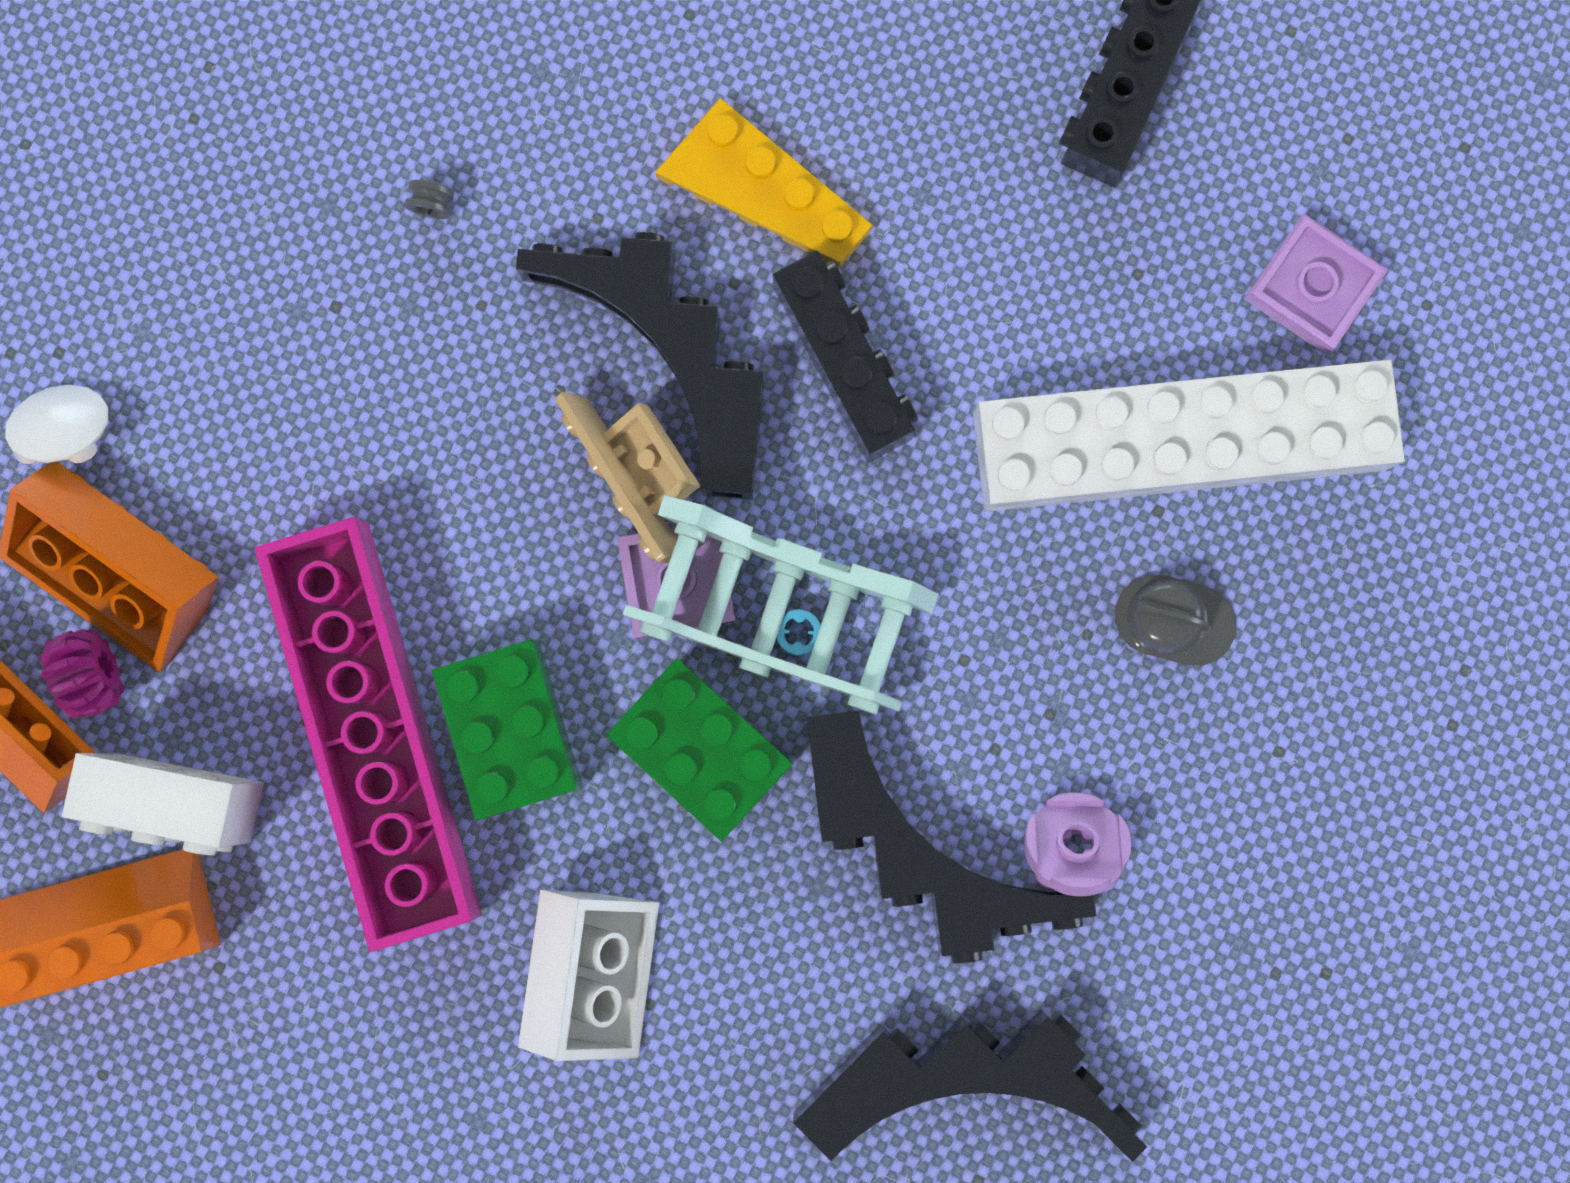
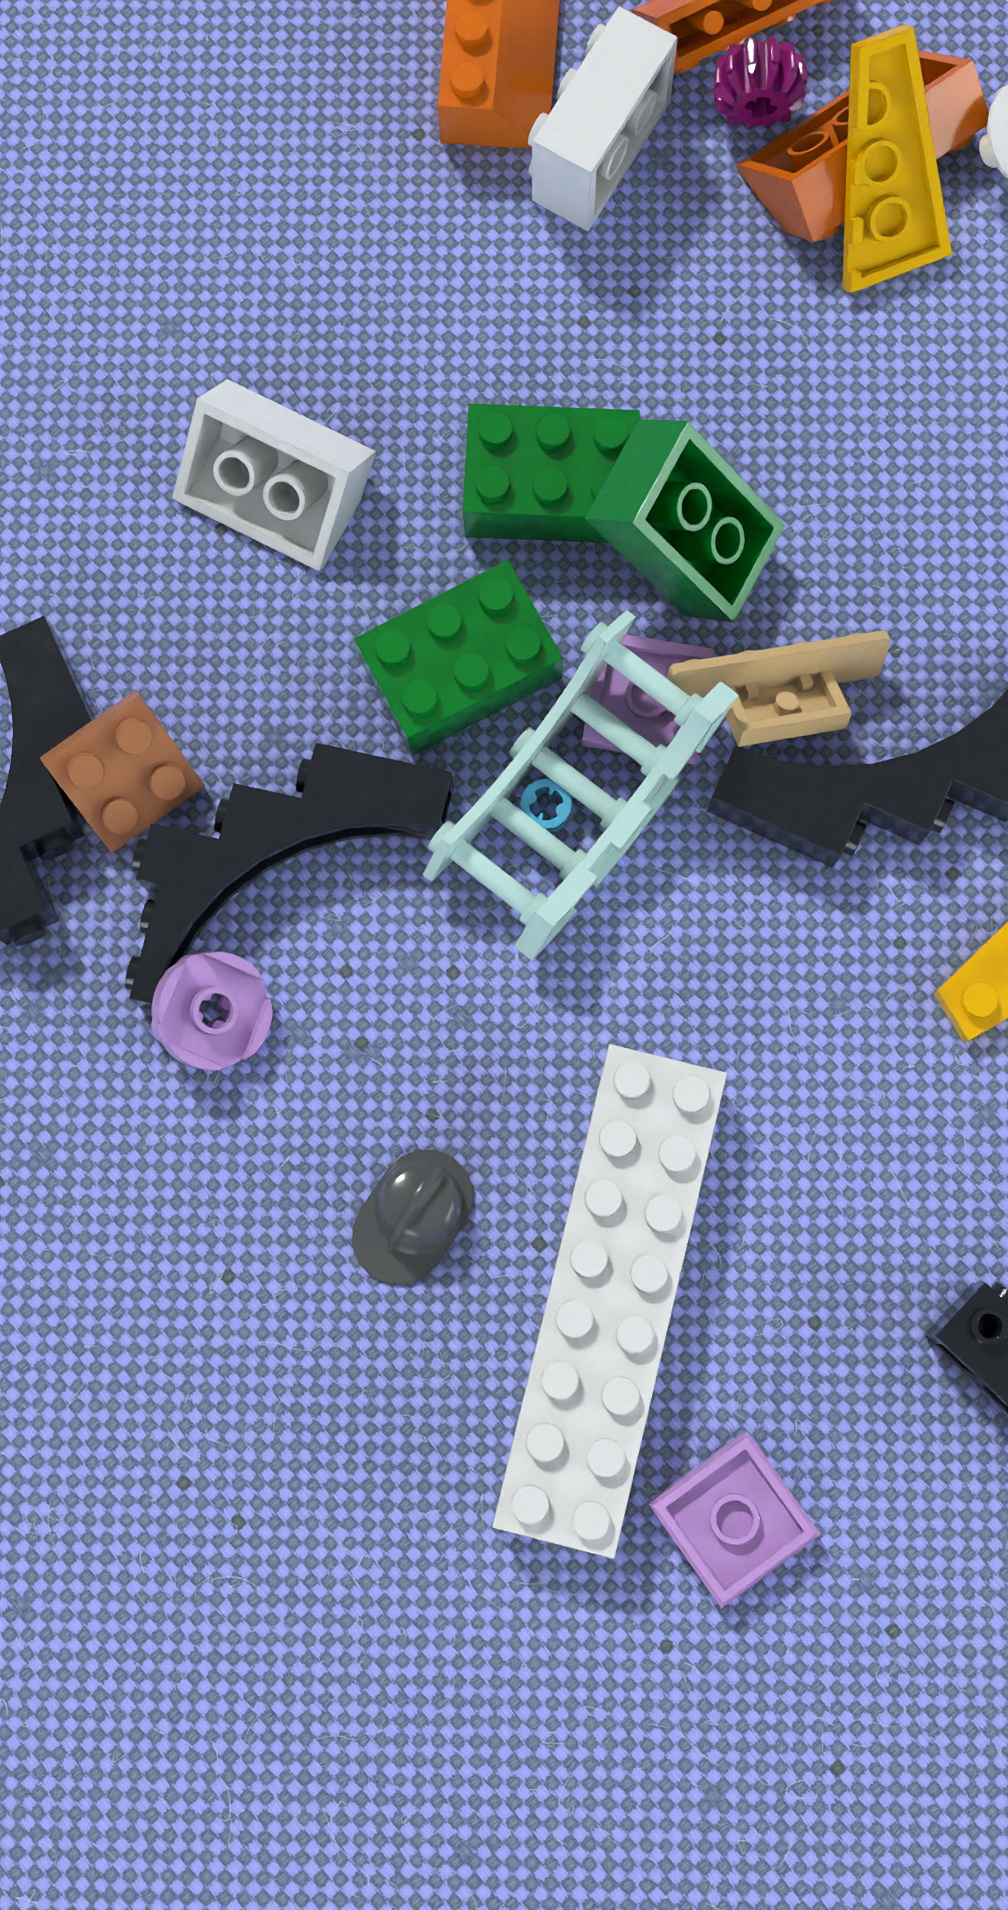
camera: 110 degrees right, 5 degrees down
(137, 526) = (892, 171): none -> yellow wing
(368, 733) = (599, 334): dark pink brick -> none
(521, 594) = (685, 519): none -> green brick
(843, 356) = (830, 952): black brick -> none
(903, 1000) = (122, 771): none -> nougat plate

